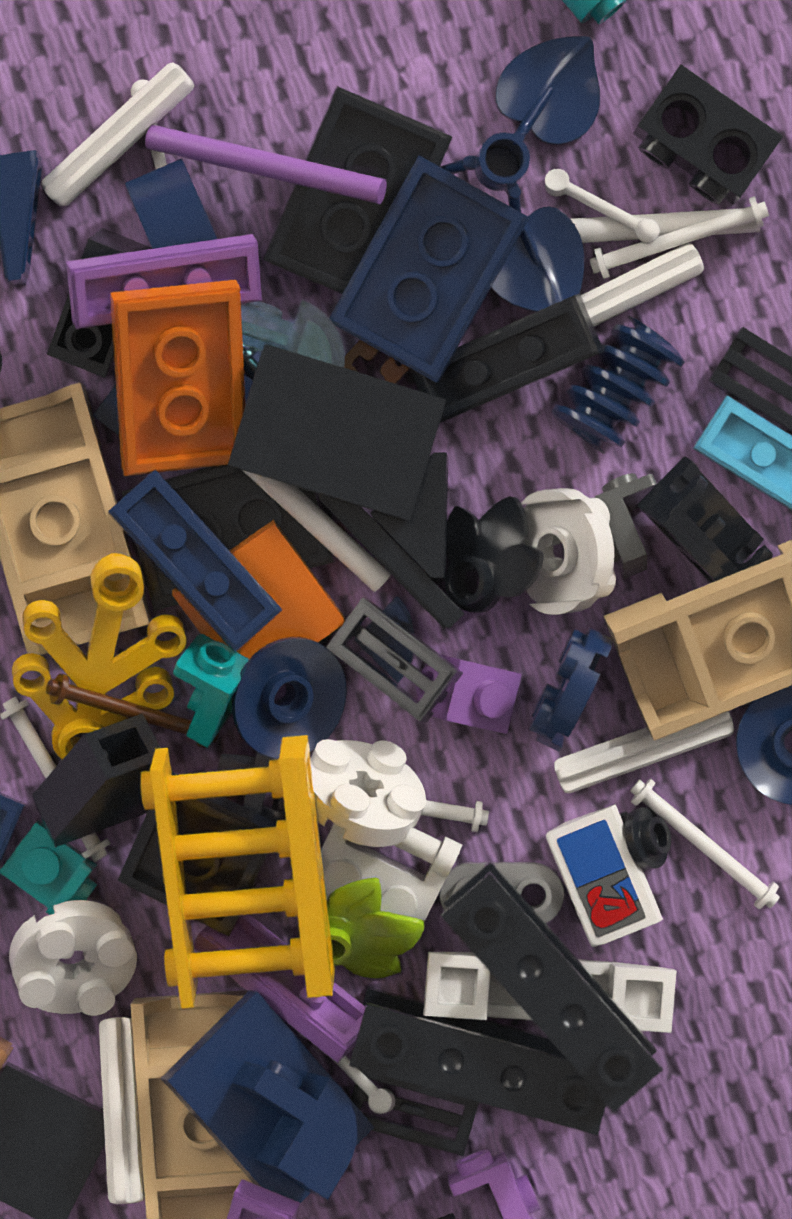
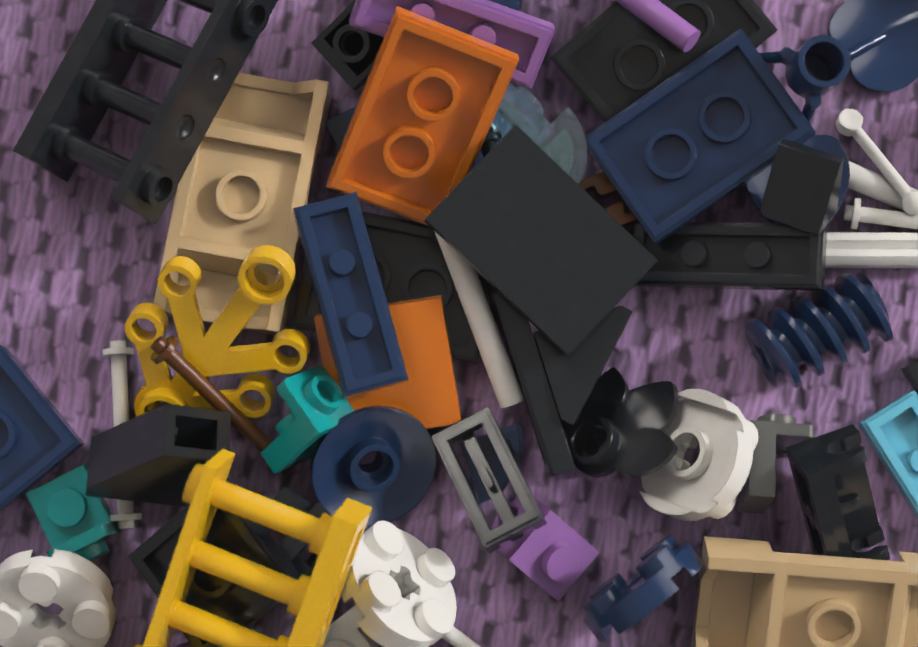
camera: 25 degrees right, 5 degrees down
(540, 273) = (802, 187): none -> black slope

